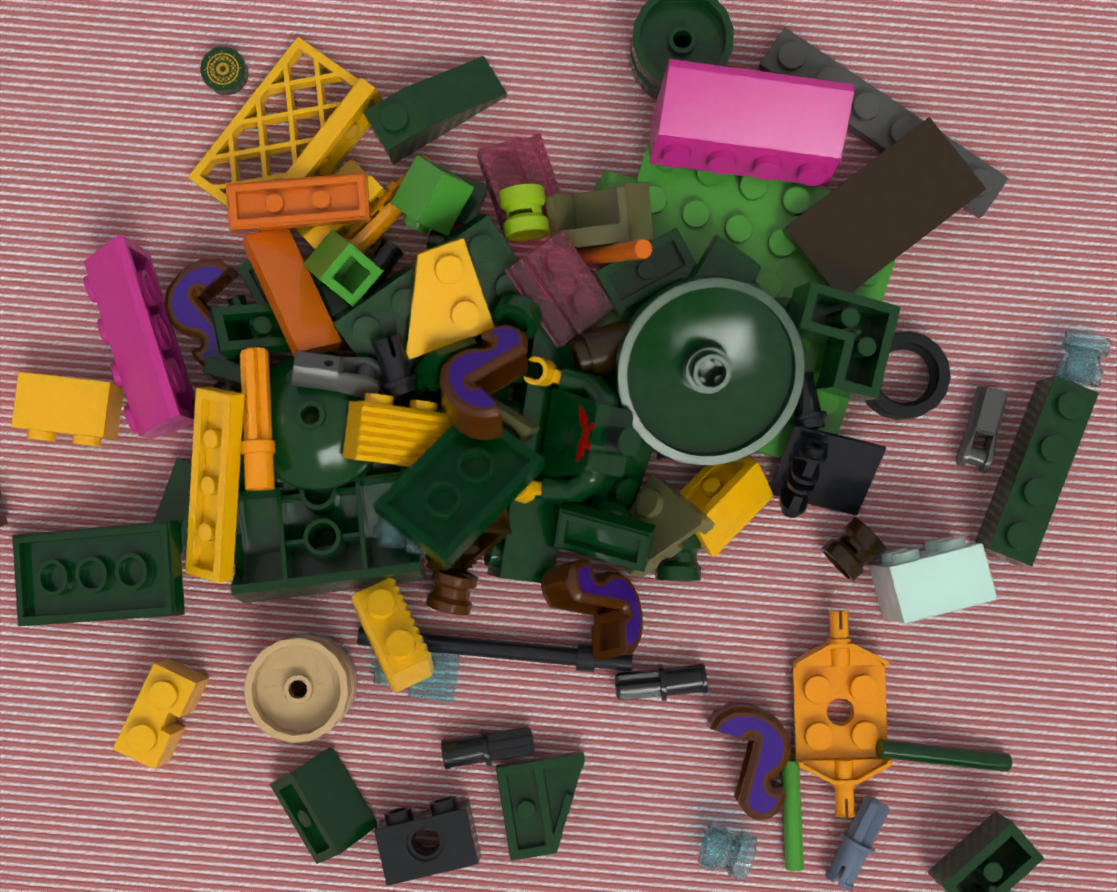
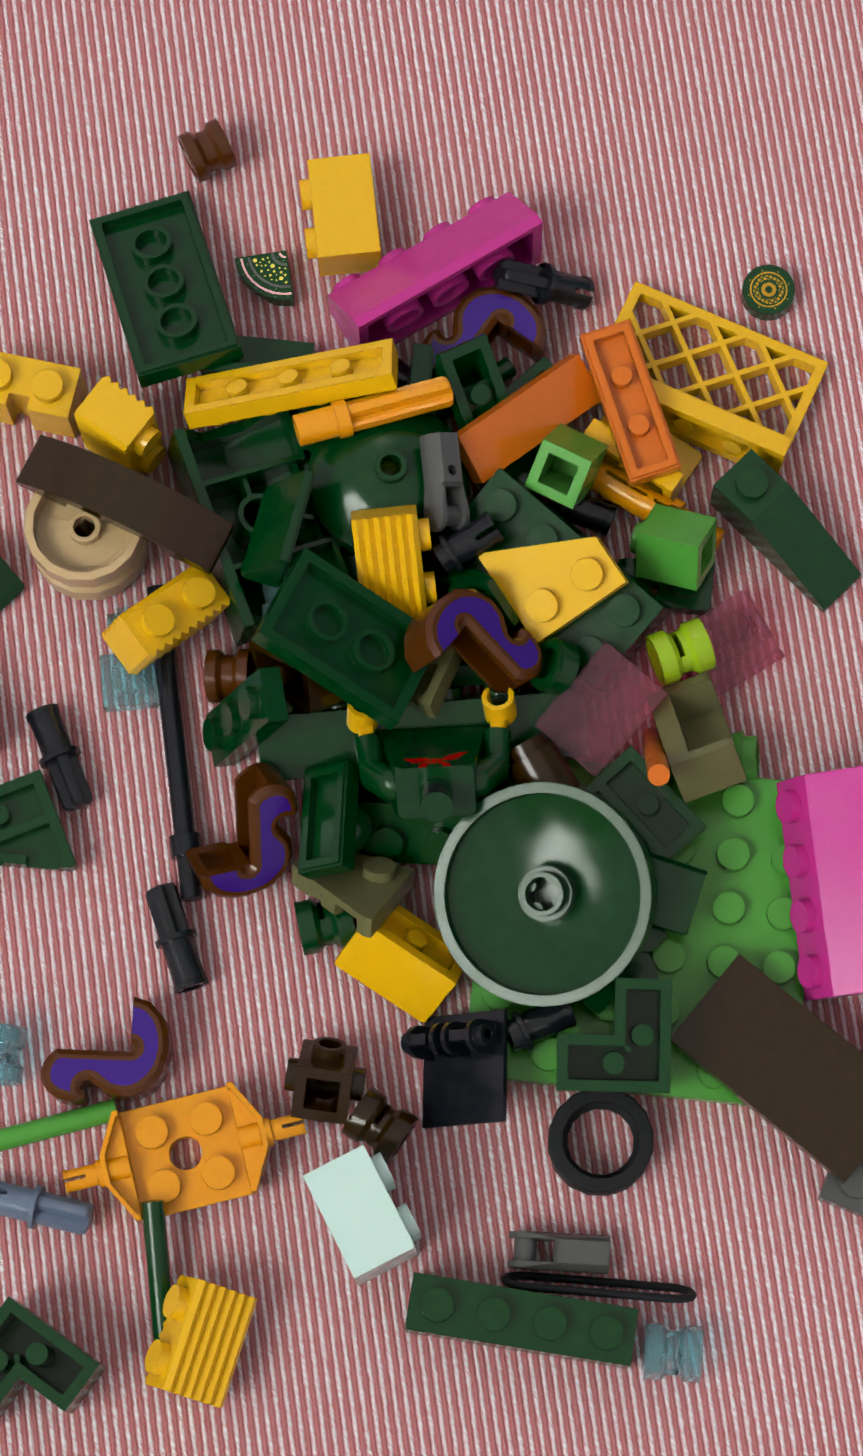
camera: 80 degrees right, 10 degrees down
(107, 484) = (267, 277): none -> dark green tile
(172, 252) = (542, 283): none -> black axle
(216, 639) = (120, 427): none -> yellow brick
(286, 650) = (127, 501): none -> dark brown slope
(343, 524) = (277, 529): none -> dark green slope
(499, 585) = (246, 717): none -> dark green plate
(812, 586) = (324, 1080): none -> dark brown brick
(1000, 733) = (199, 1340): none -> yellow brick
(1031, 401) = (687, 1293): none -> black piece

